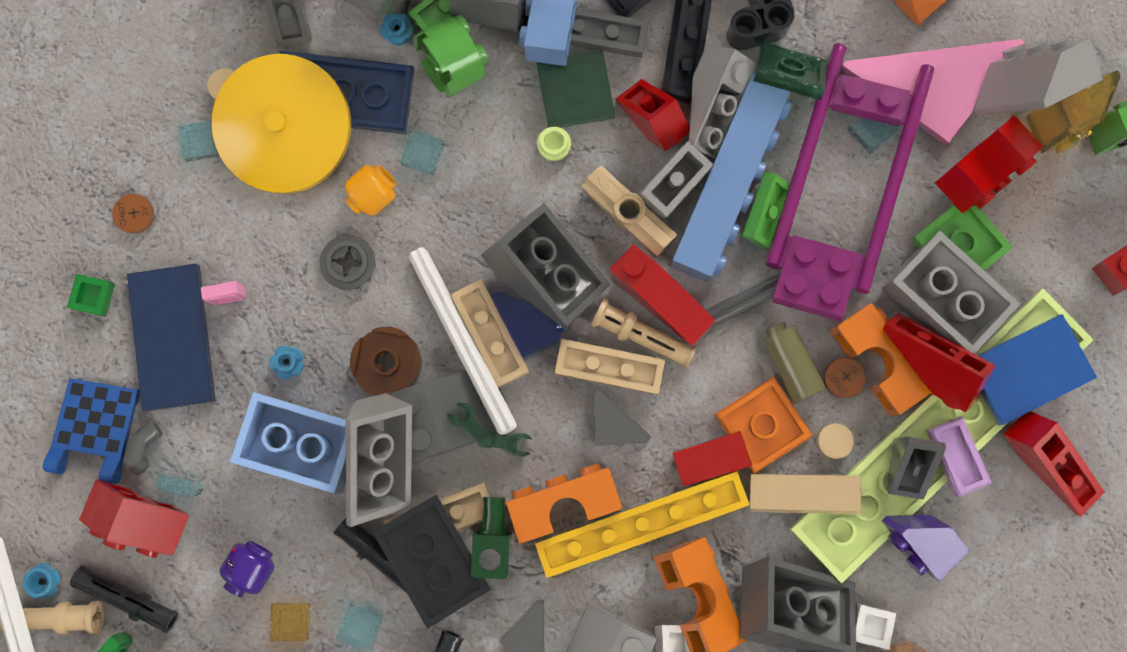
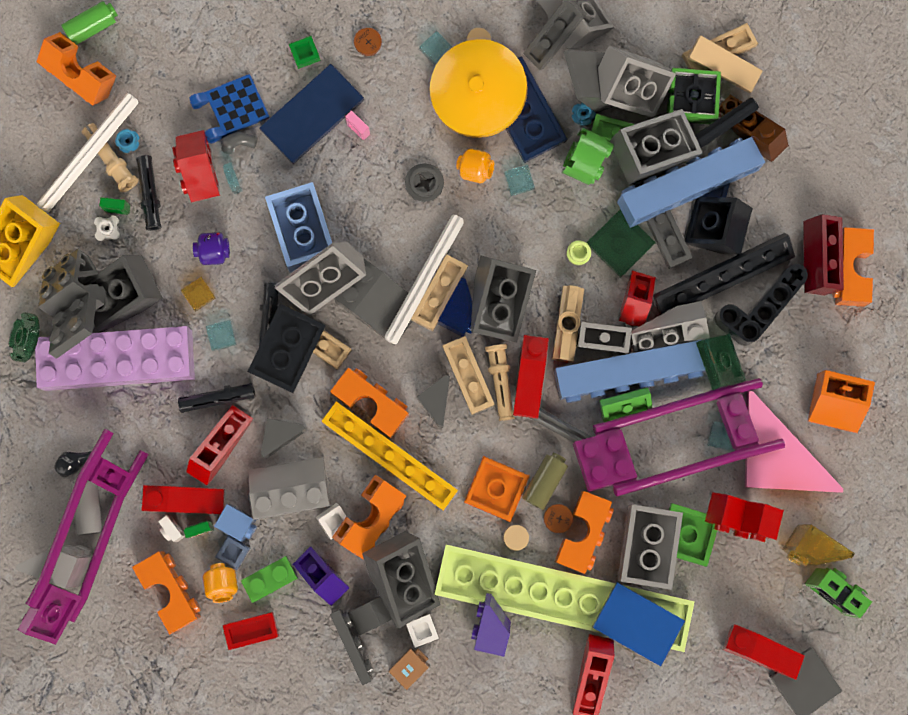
camera: 50 degrees right, 0 degrees up
(287, 371) = (347, 193): dark azure plate -> none
(374, 346) = (387, 232): reddish brown plate -> none
(484, 438) = (376, 331): clear green piece -> none
(491, 537) = (323, 373): dark green bracket -> none
(712, 458) = (455, 471): red tile -> none
(805, 494) = (472, 538): tan tile -> none
(913, 466) = (530, 590): dark grey slope -> none
(941, 364) = (602, 567): red slope -> none
(961, 458) = (556, 614): lavender tile -> none
(1038, 76) = (817, 508): light grey slope -> none

